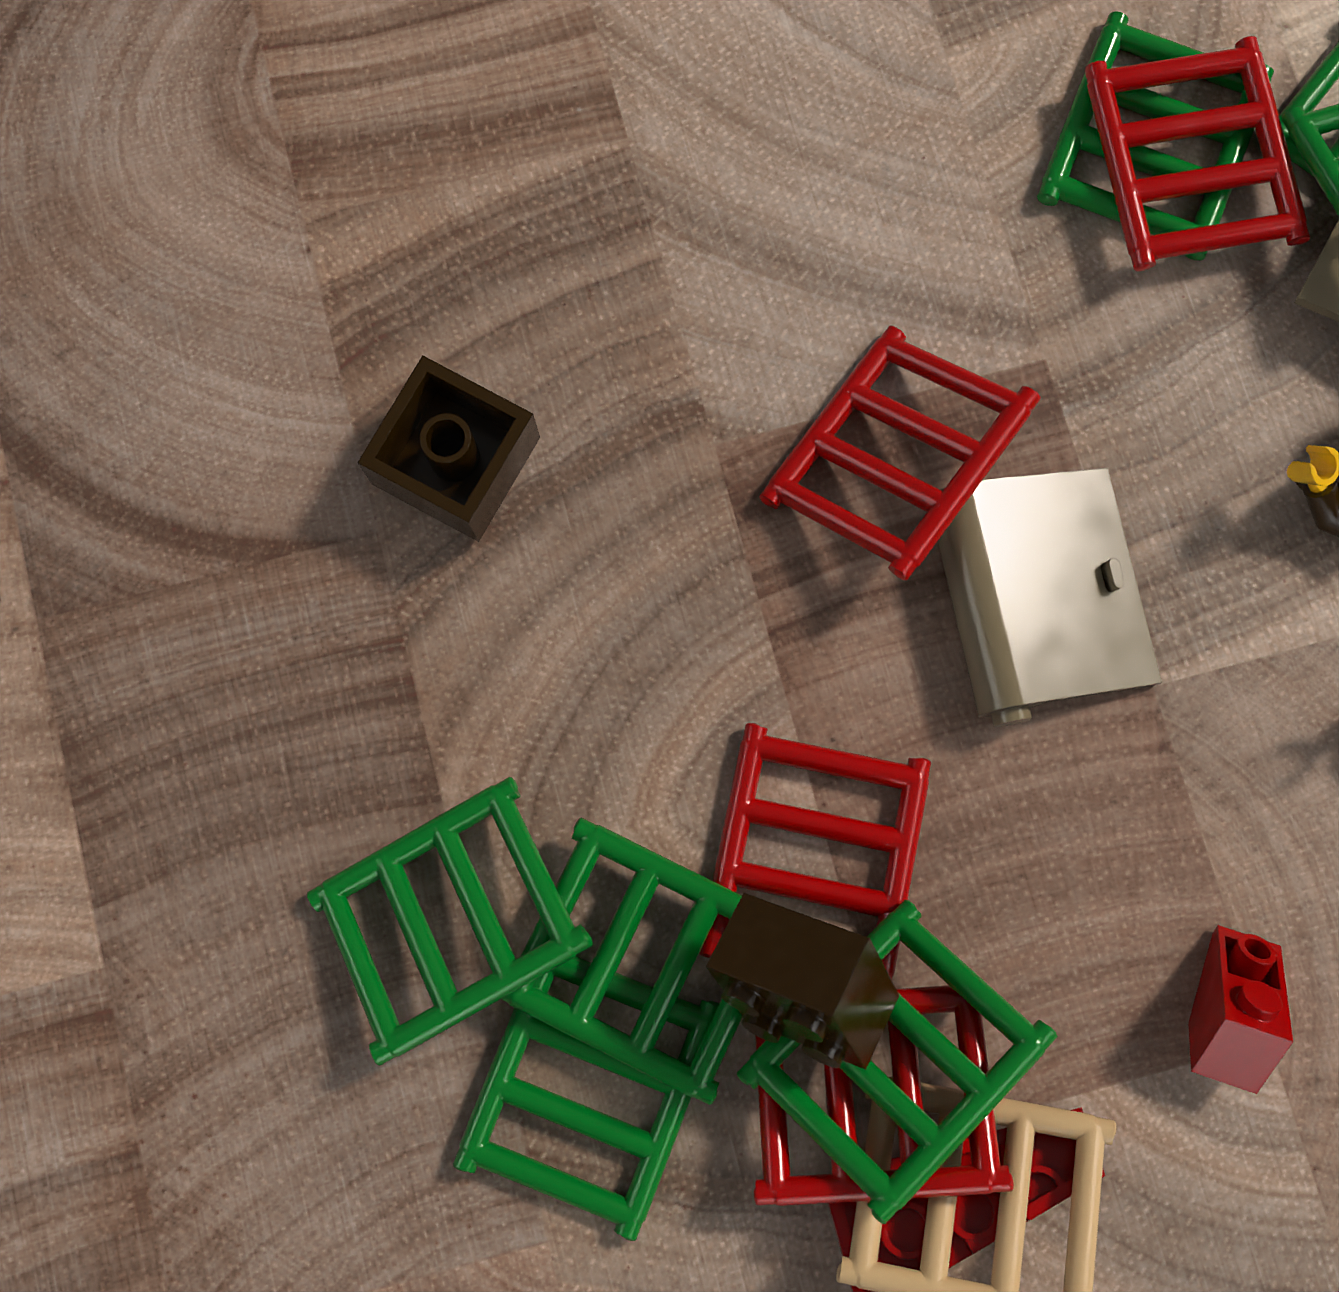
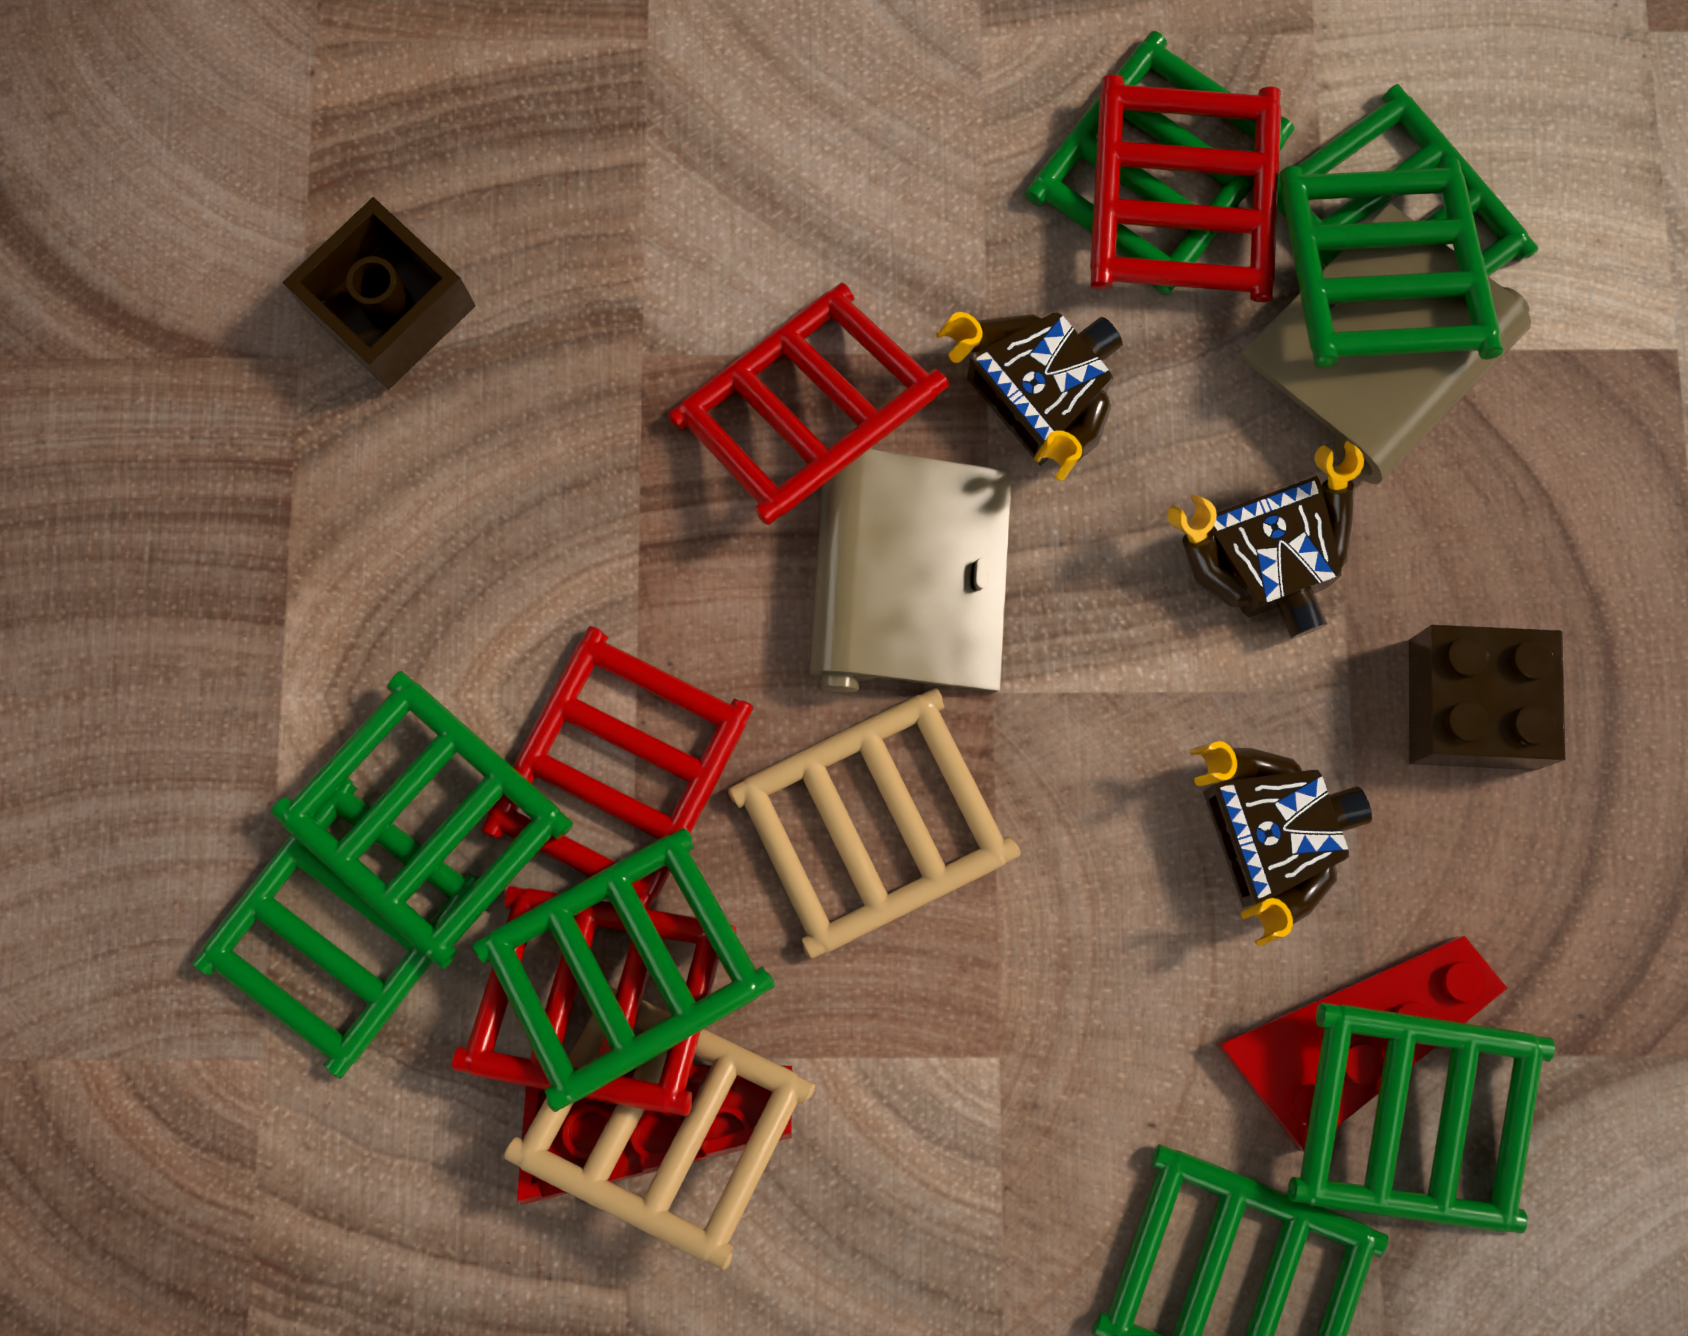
camera: 15 degrees right, 0 degrees up
(507, 971) = (286, 791): green bar -> none
(803, 982) = (544, 869): dark brown brick -> none
(1111, 924) = (936, 877): none -> tan bar
(1118, 374) = (1040, 379): none -> torso
(1240, 1011) = (971, 1015): red slope -> none

